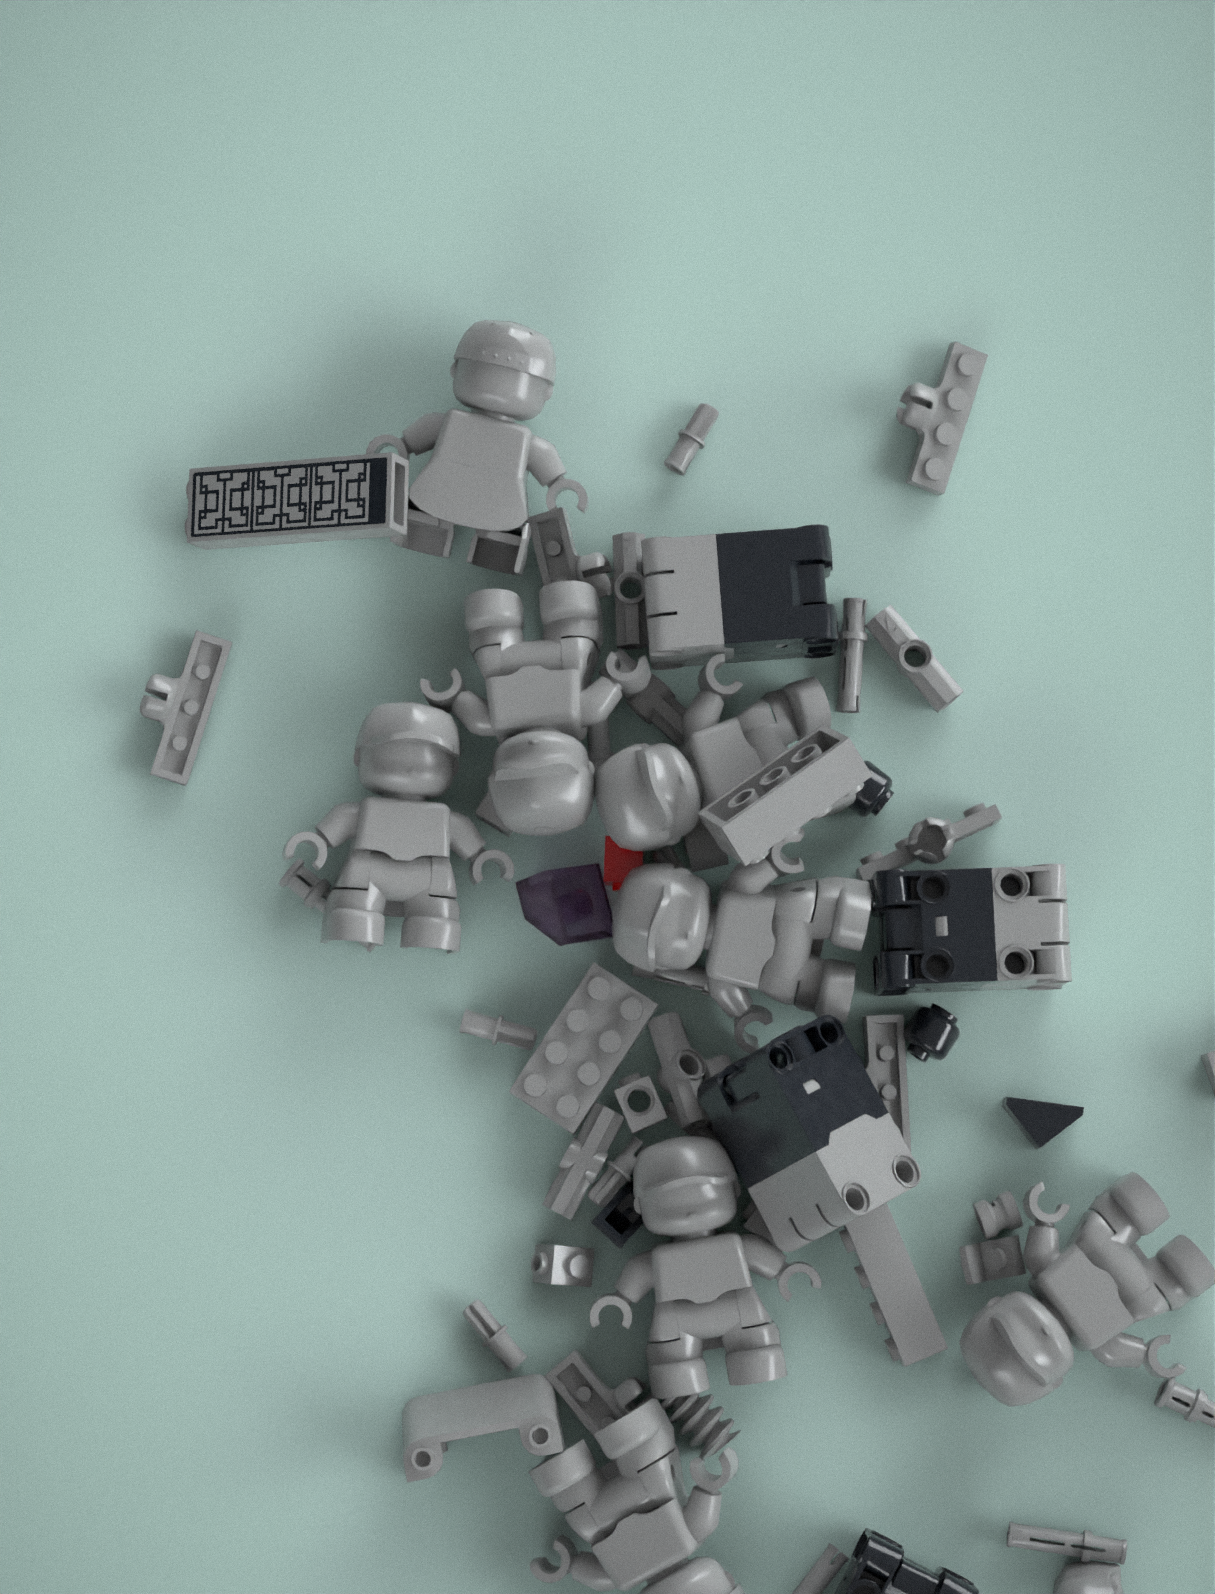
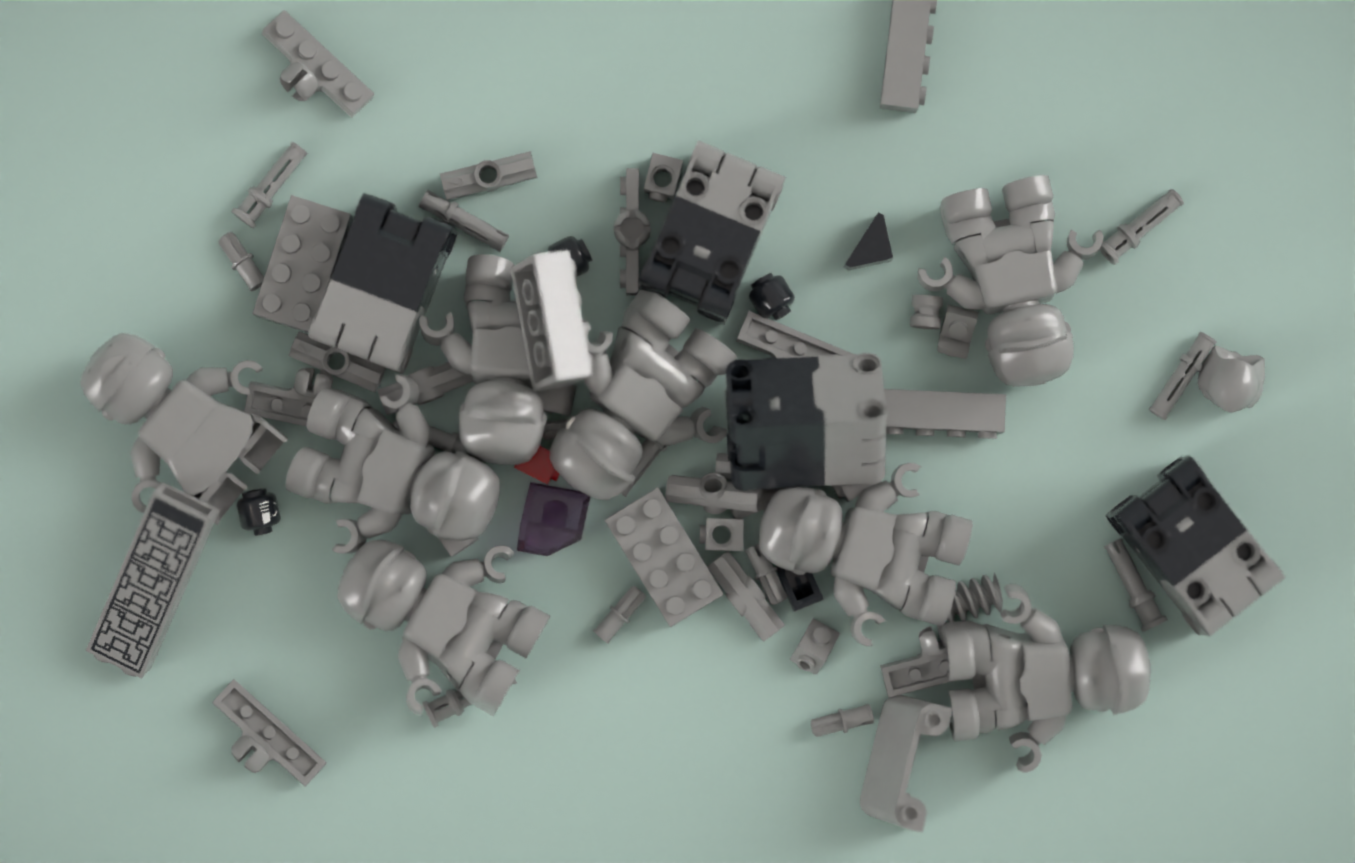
camera: 70 degrees left, 5 degrees up
(427, 582) = (258, 511): none -> black head
(720, 498) = (302, 263): none -> light grey brick
(835, 438) = (263, 200): none -> light grey pin
(1016, 837) = (666, 164): none -> light grey brick

